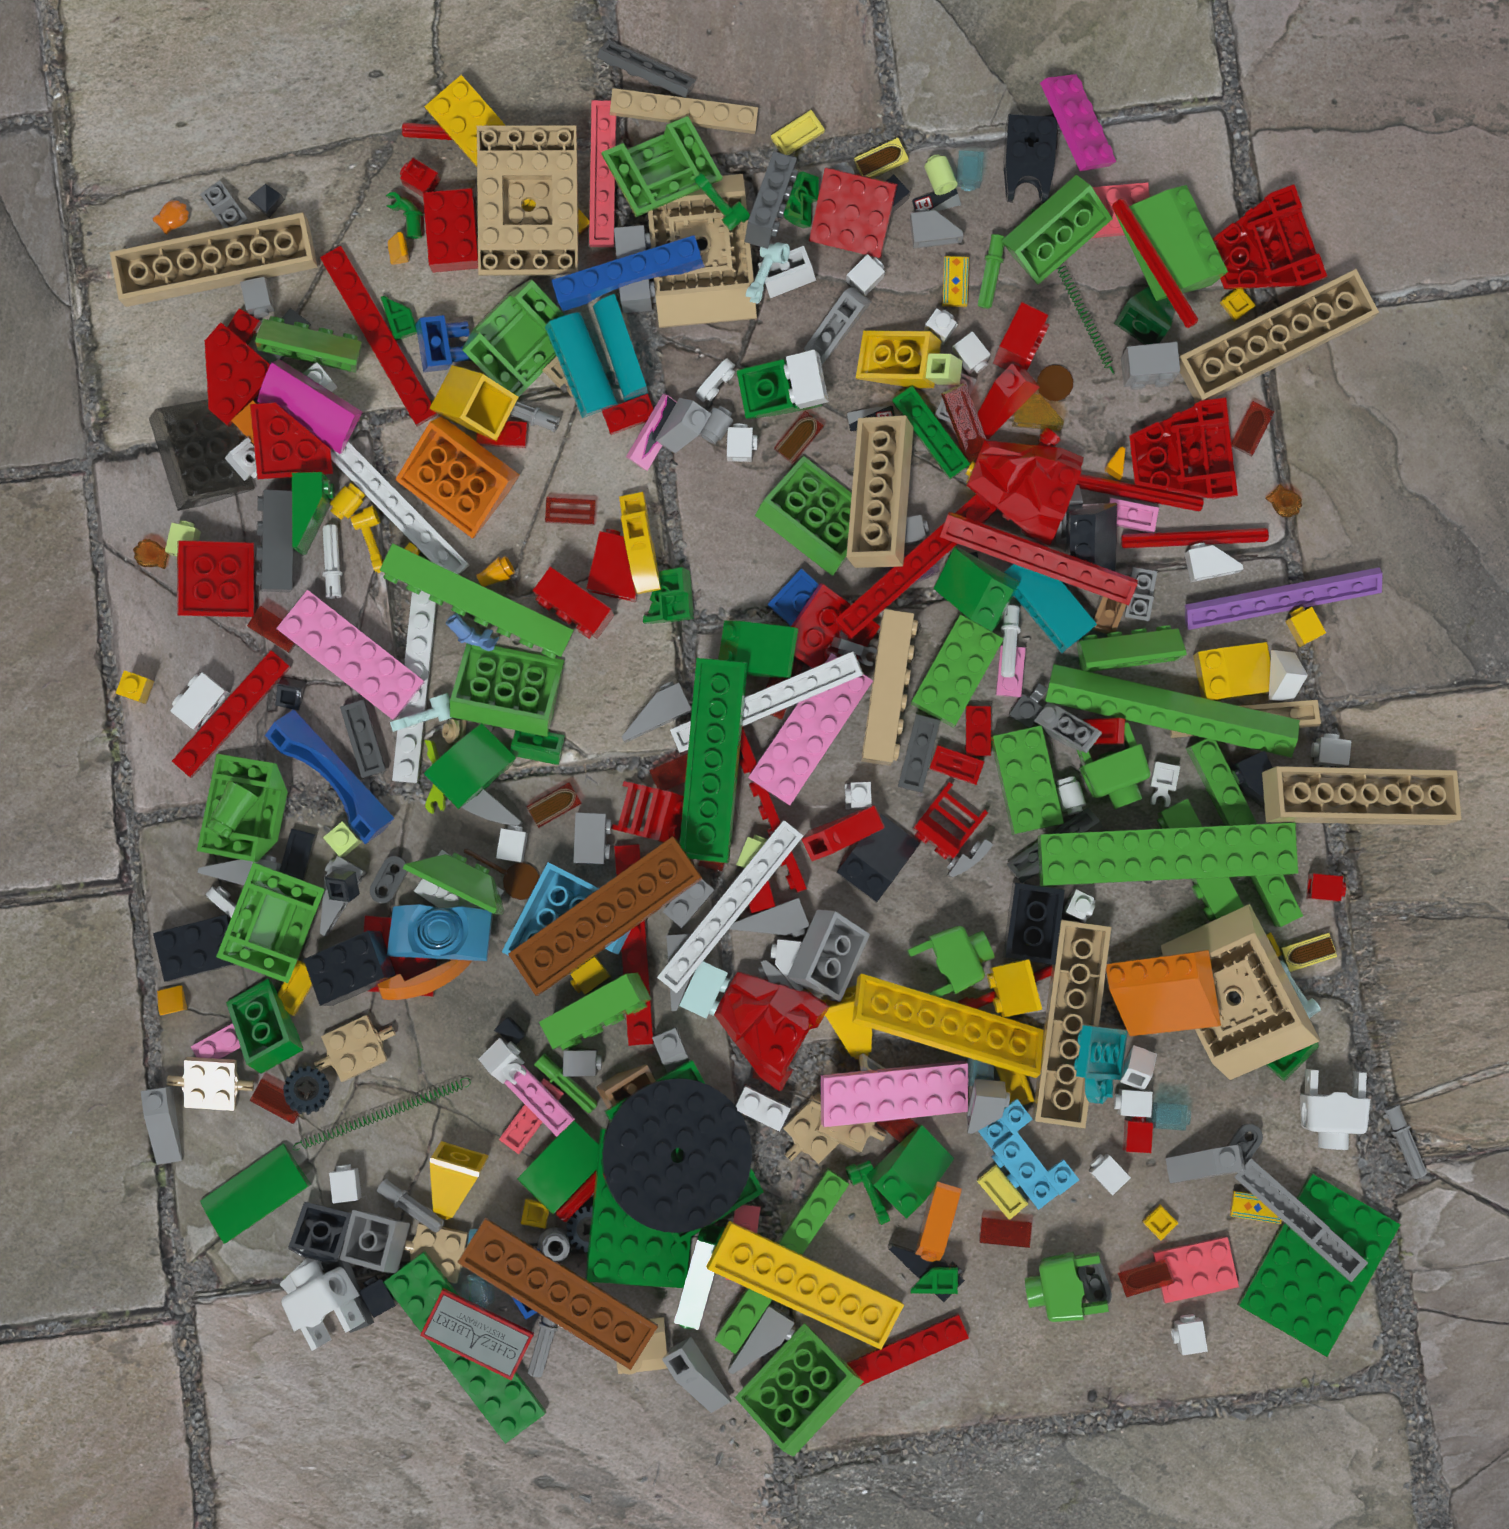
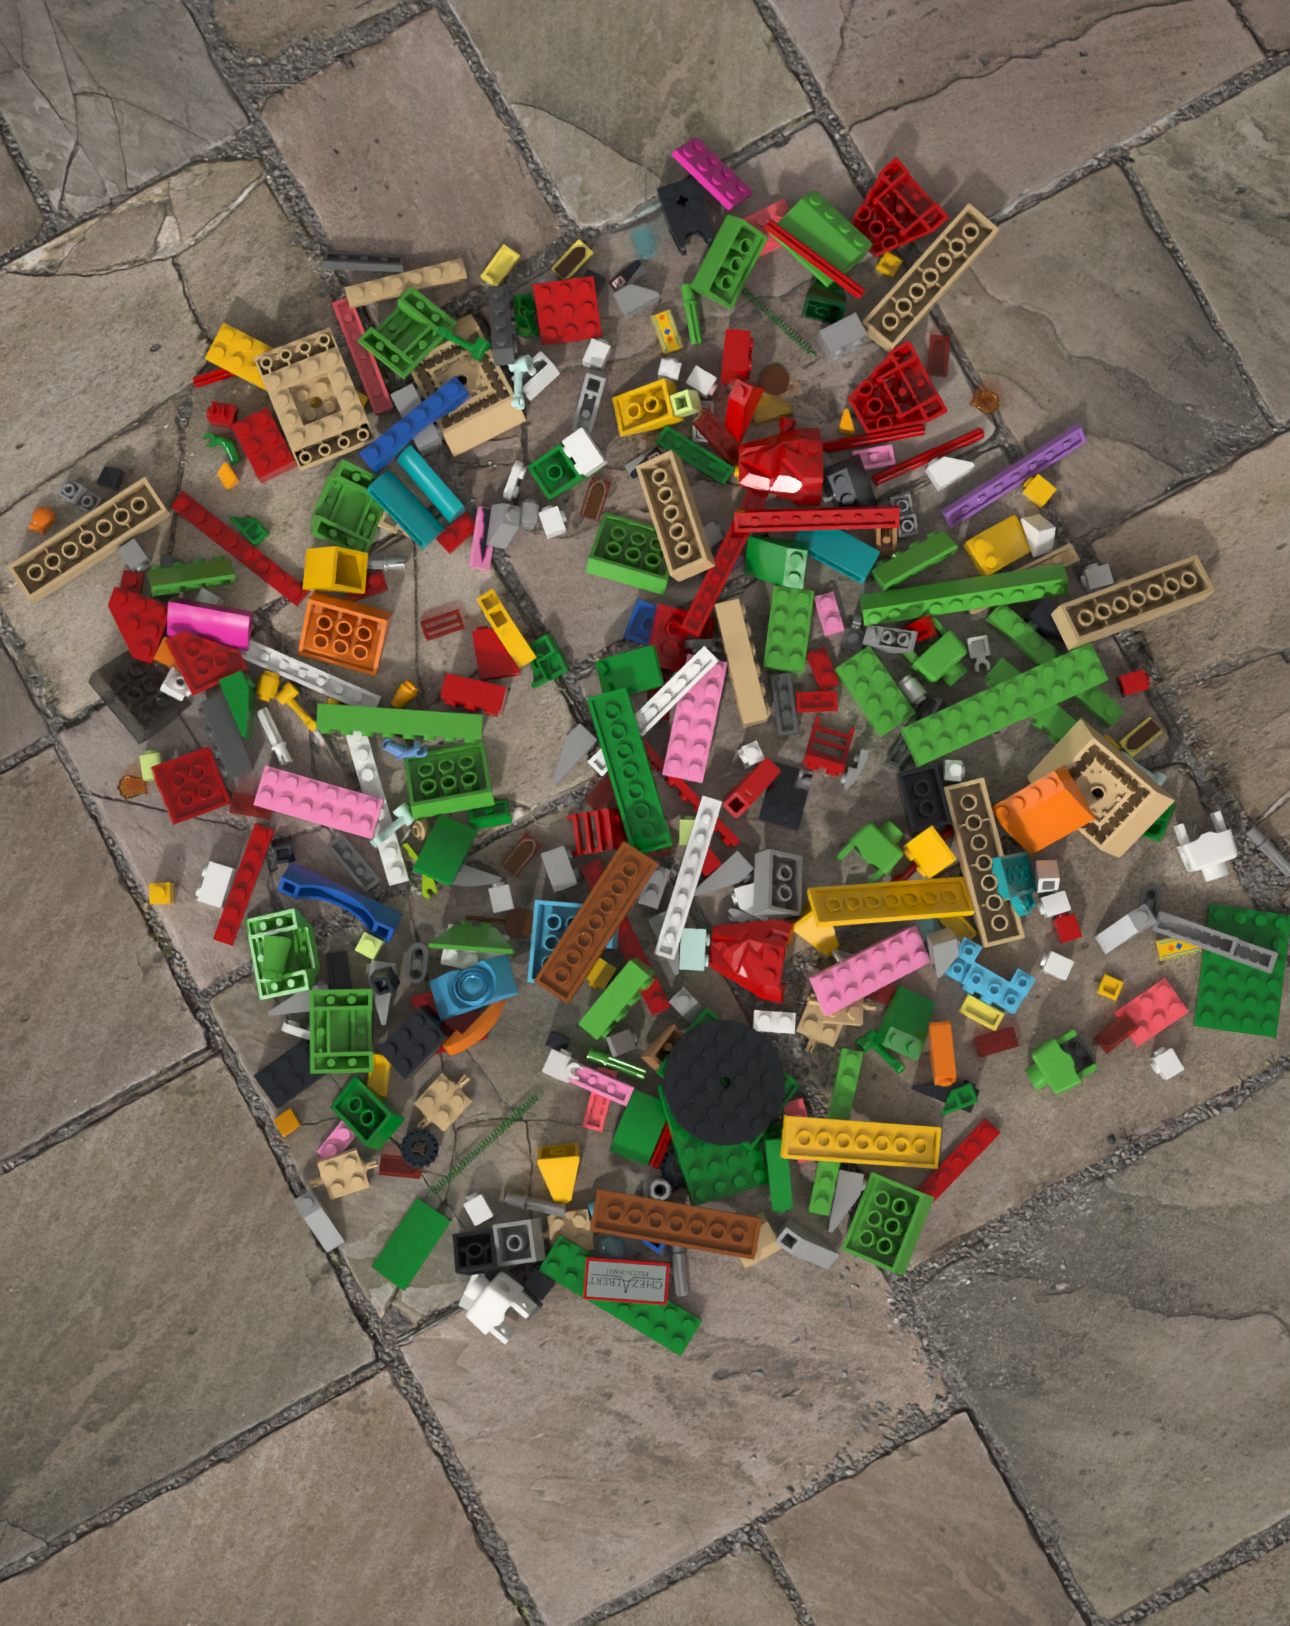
camera: 25 degrees left, 0 degrees up
(434, 342) = (286, 538): blue brick -> none
(534, 1214) = (632, 1172): yellow tile -> none
(940, 174) = (622, 254): yellowish green brick -> none
(1010, 630) = (816, 583): white axle -> none
(1170, 1116) = (1085, 903): clear light blue brick -> none

